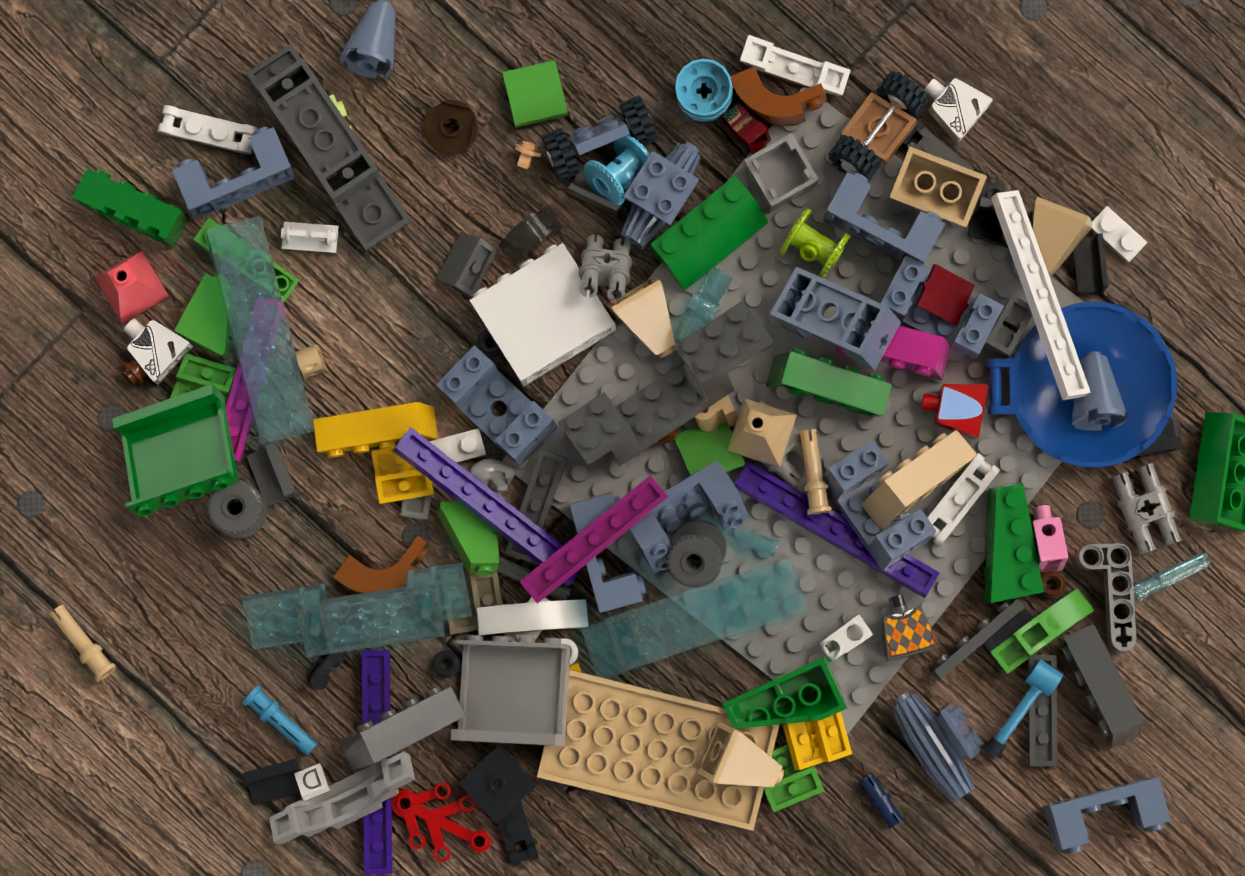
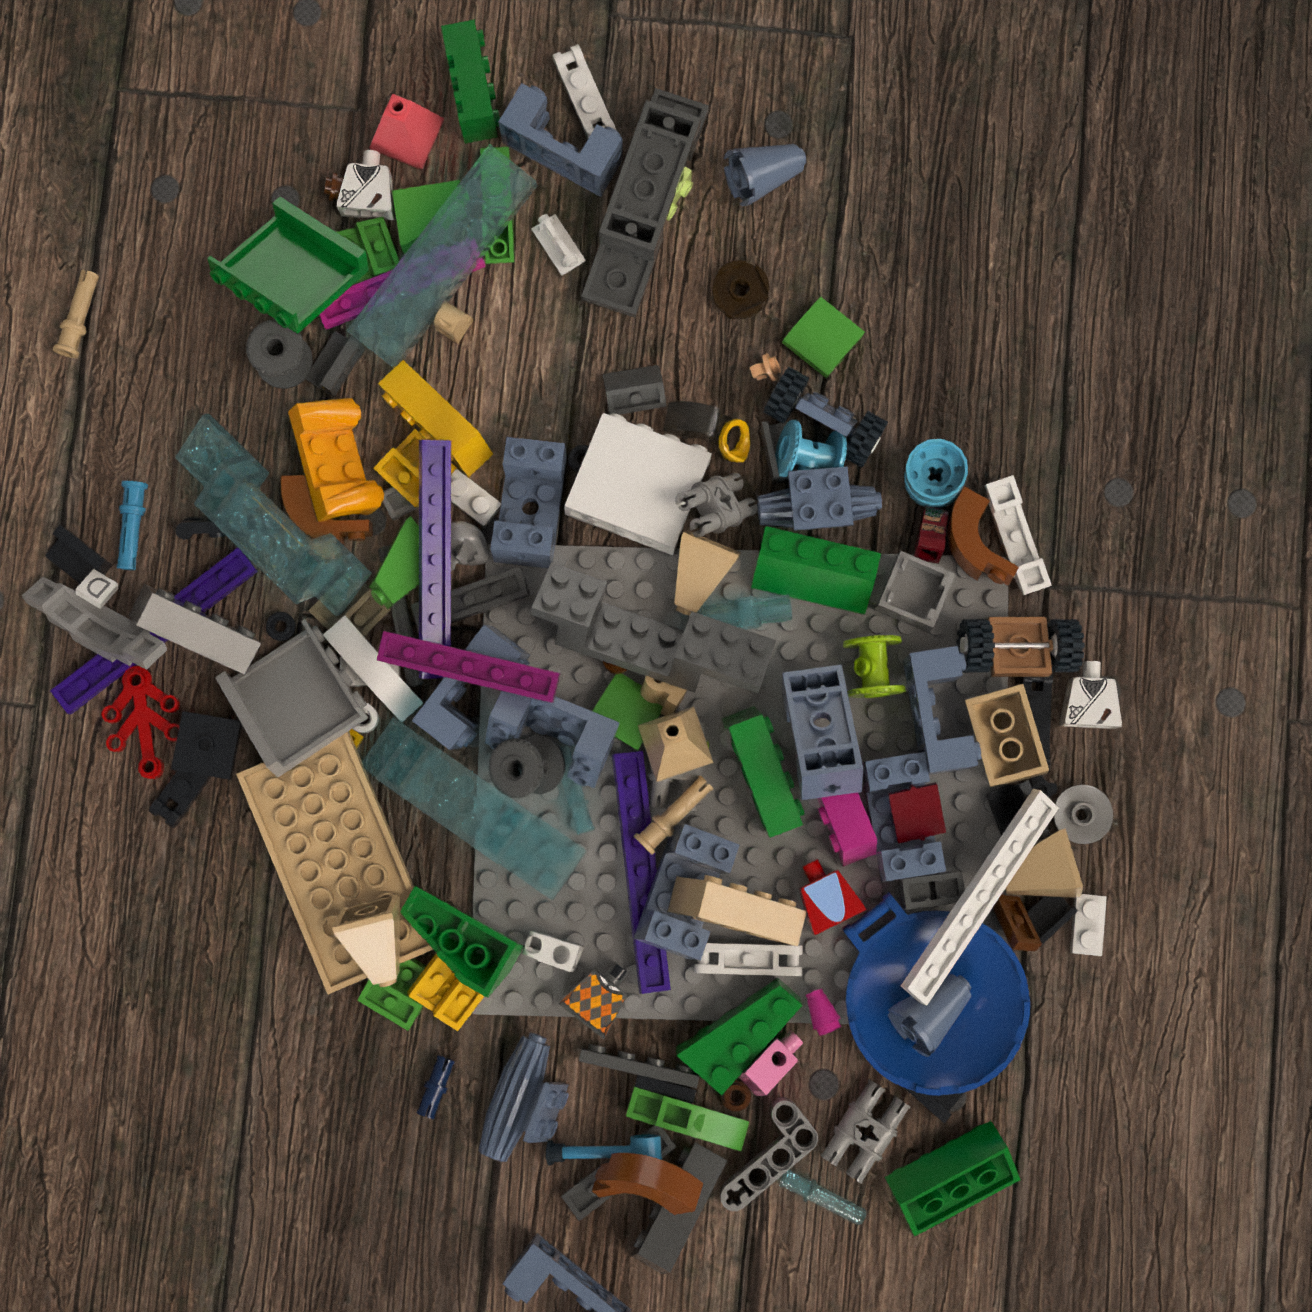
camera: 55 degrees right, 0 degrees up
(348, 529) = (332, 458): none -> light orange piece
(575, 221) = (742, 448): none -> yellow piece
(1038, 474) = (822, 1013): none -> dark pink cone
(1040, 164) = (1097, 810): none -> light grey dish
(1063, 686) = (648, 1178): none -> dark orange arch
(1079, 285) = (1016, 924): none -> reddish brown plate

